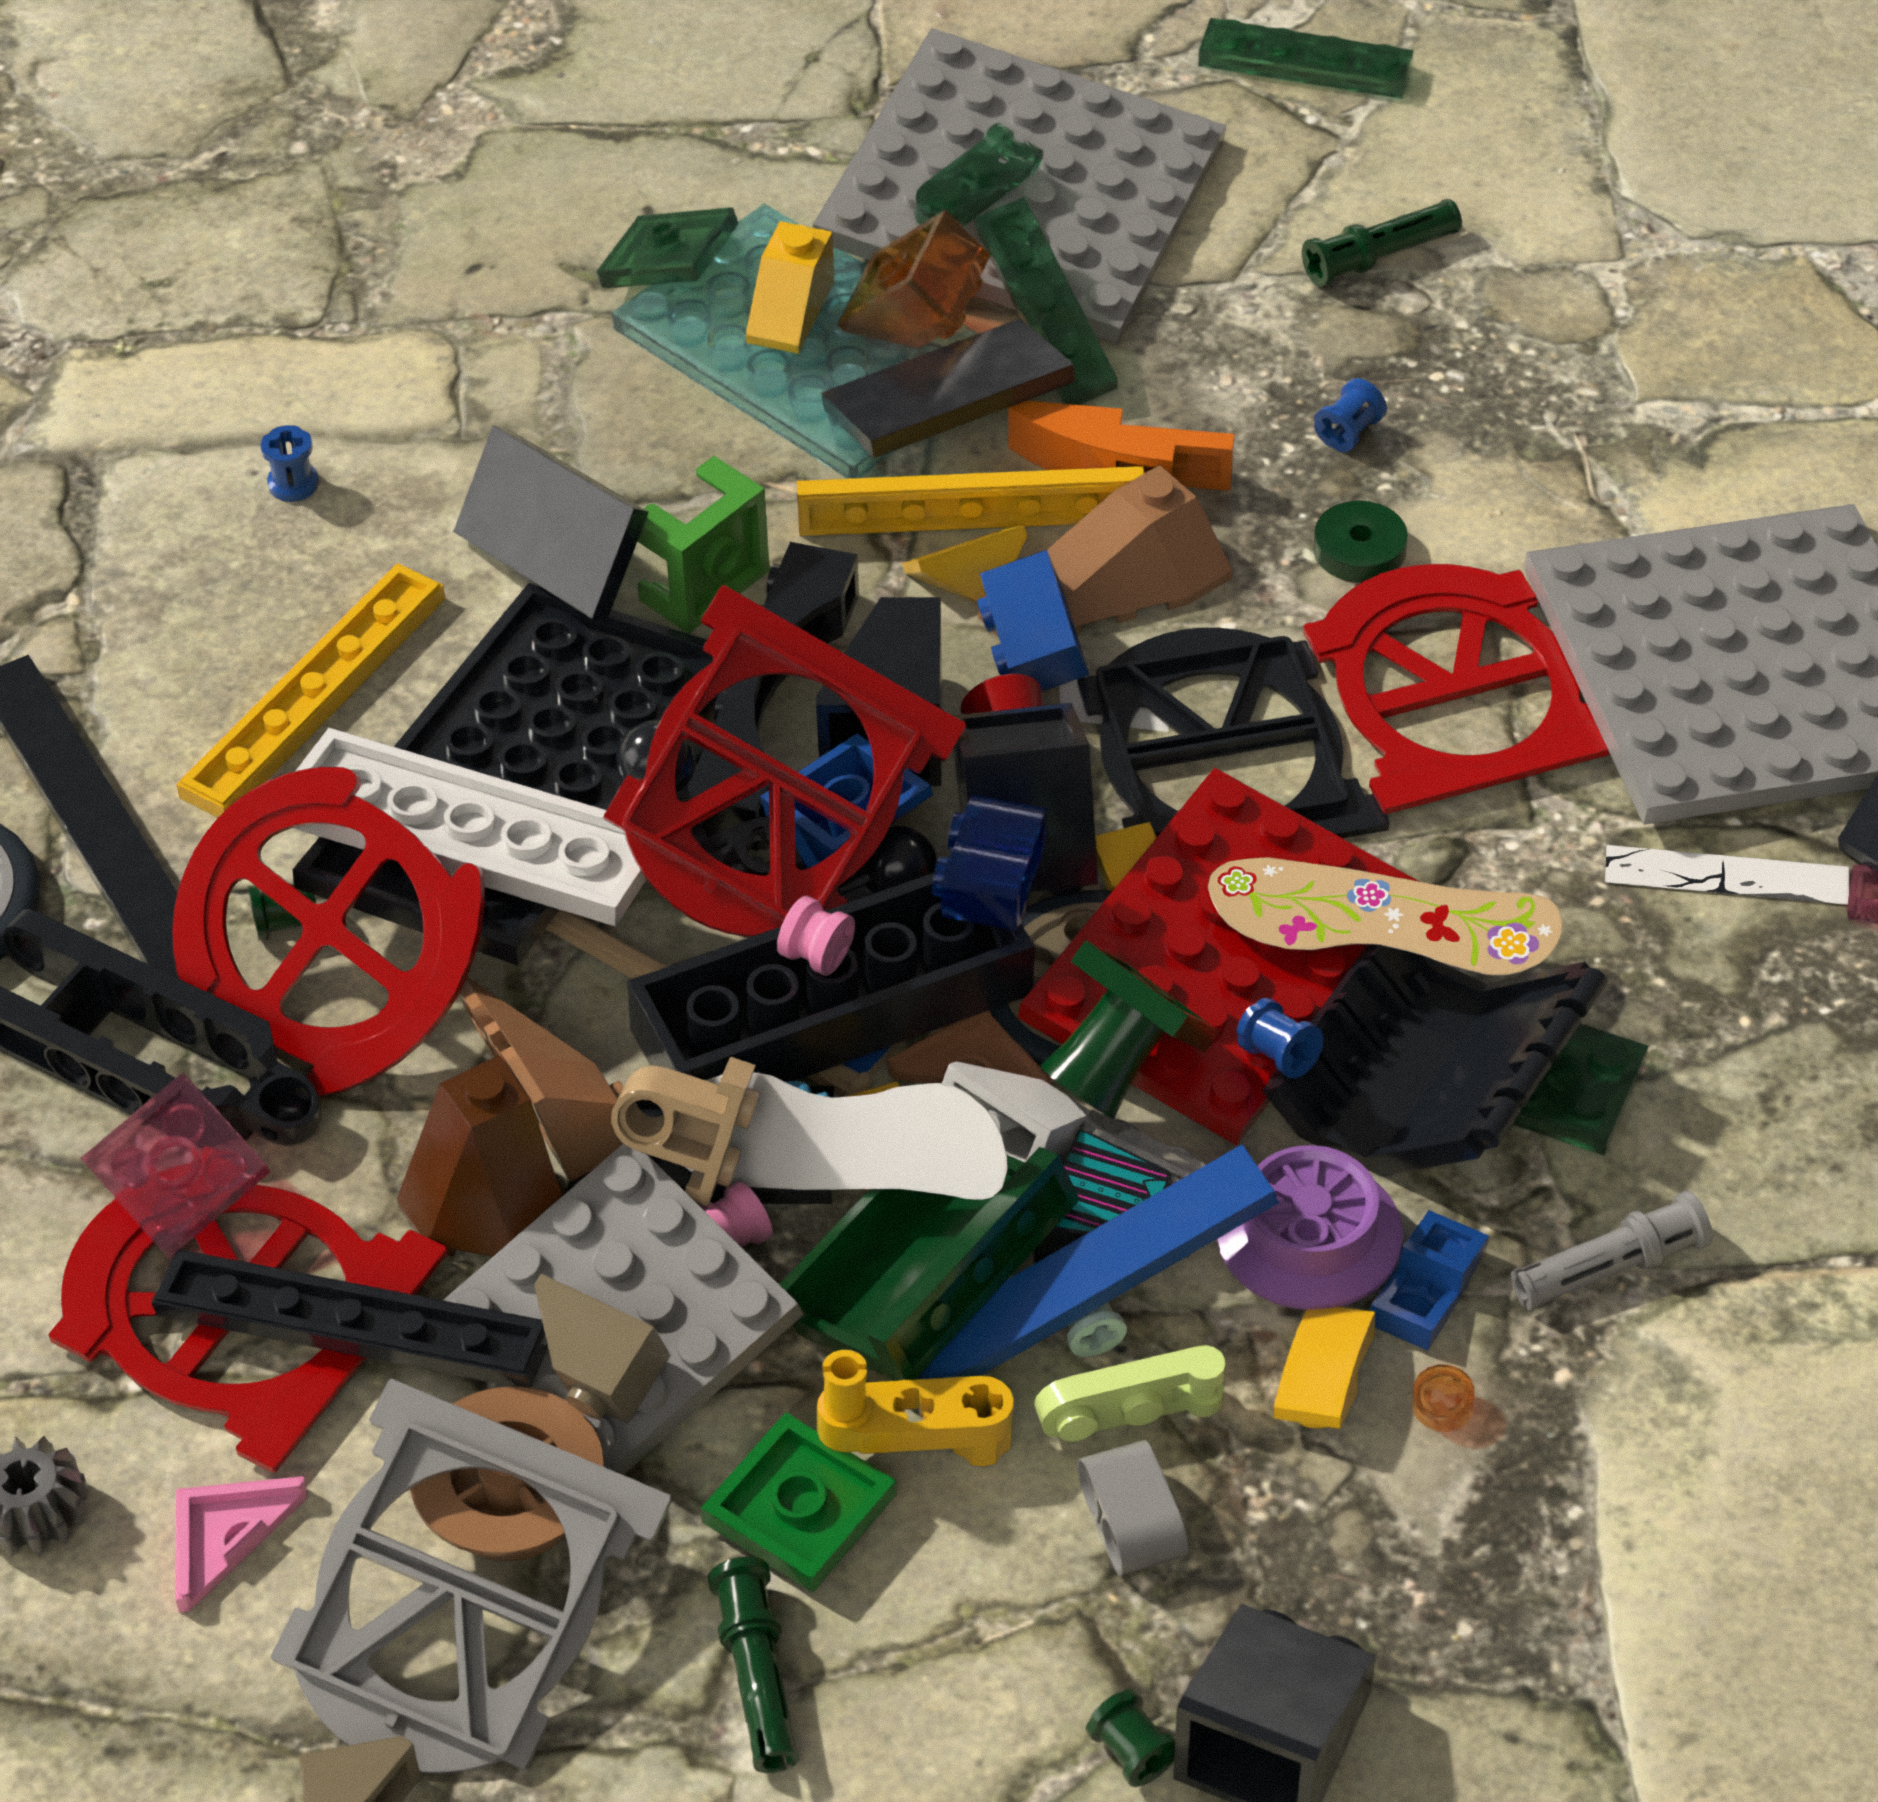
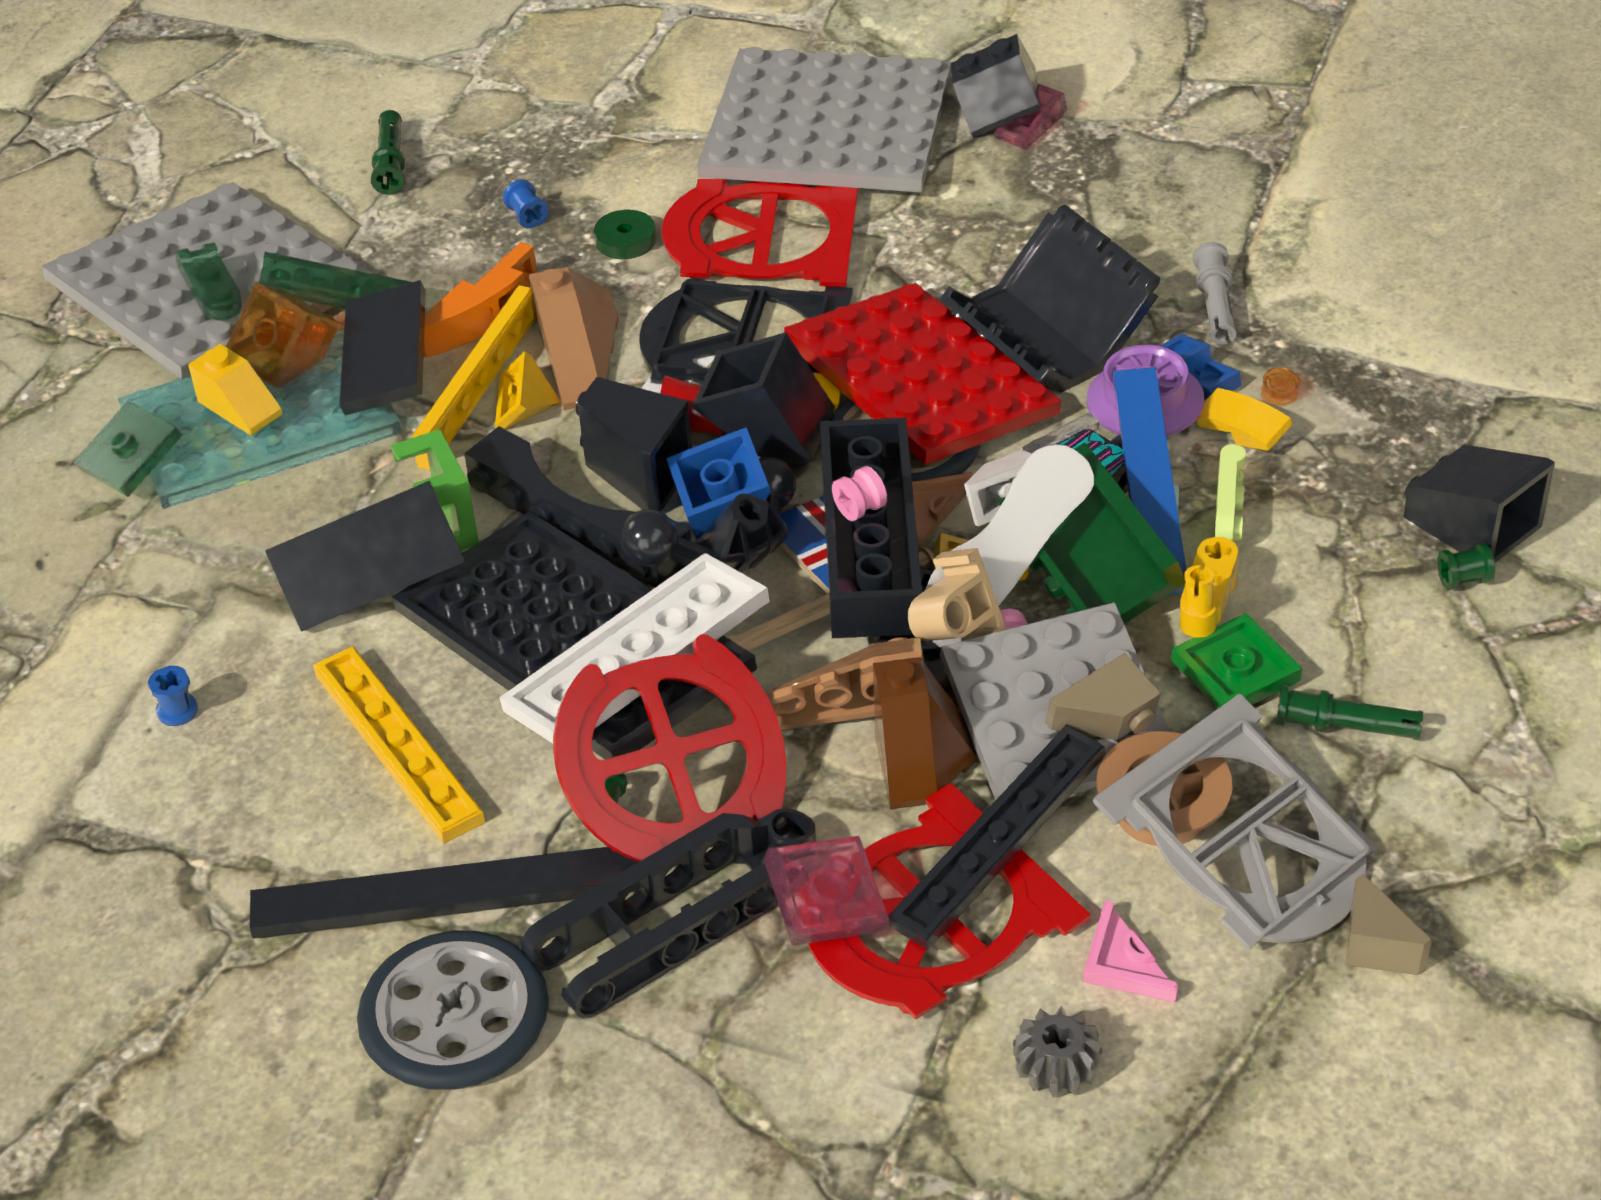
camera: 65 degrees left, 5 degrees down
(657, 826) = (719, 407): red window -> none
(991, 862) = (844, 404): clear blue brick -> none
(1032, 622) = (608, 359): blue brick -> none
(1120, 1032) = (988, 402): dark green plant -> none
(1132, 1507) = (1306, 523): light grey beam -> none
(1289, 1043) = (1023, 349): blue bush -> none
(1306, 58) = (196, 138): clear green plate -> none
(1336, 906) = (932, 304): tan sticker -> none
(1727, 874) = (967, 181): white sticker -> none

